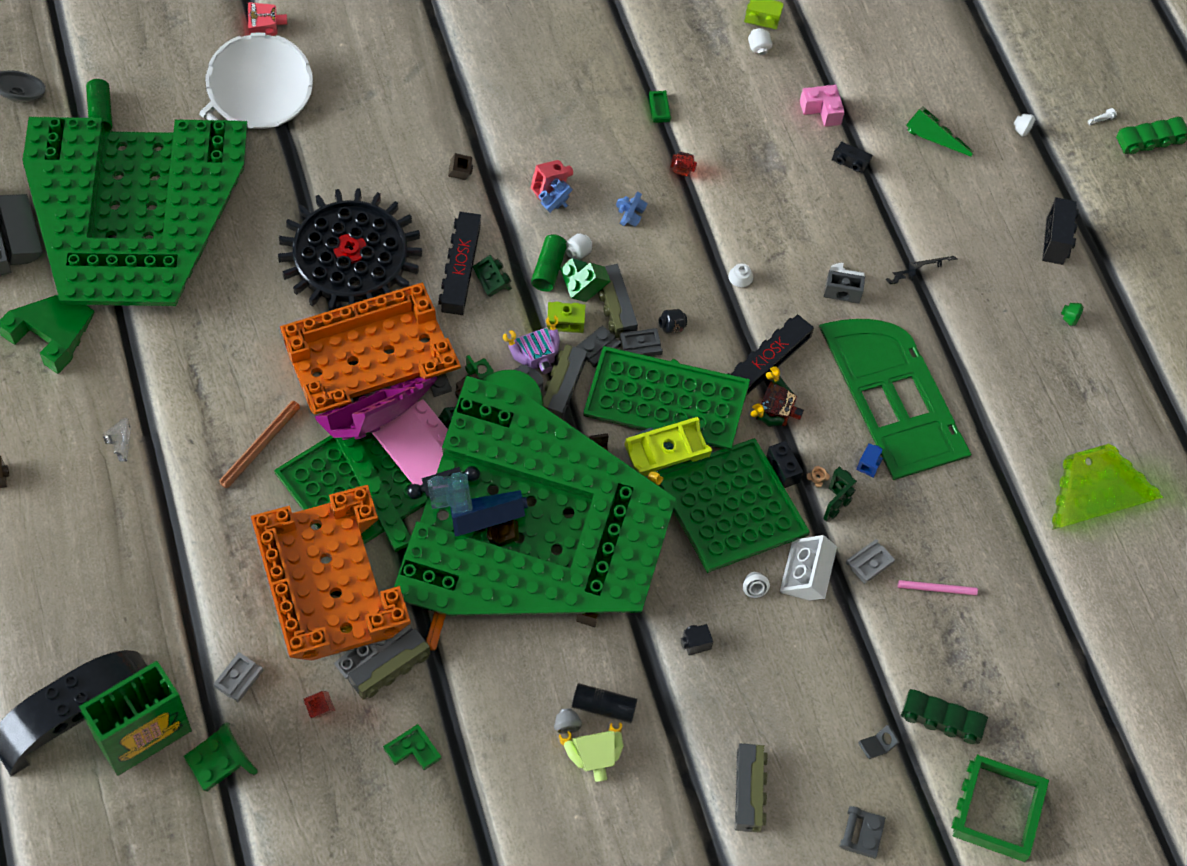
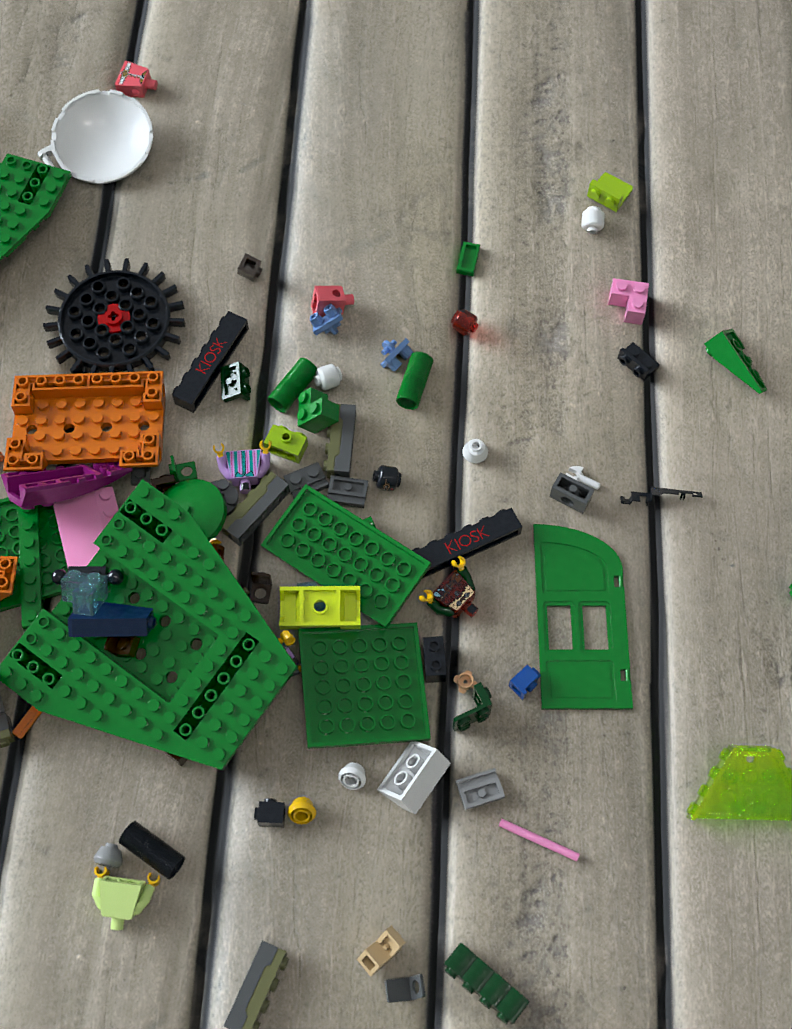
camera: 25 degrees right, 5 degrees up
(660, 228) = (414, 380): none -> green piece
(724, 627) = (301, 810): none -> yellow cone
(845, 718) = (381, 951): none -> tan brick

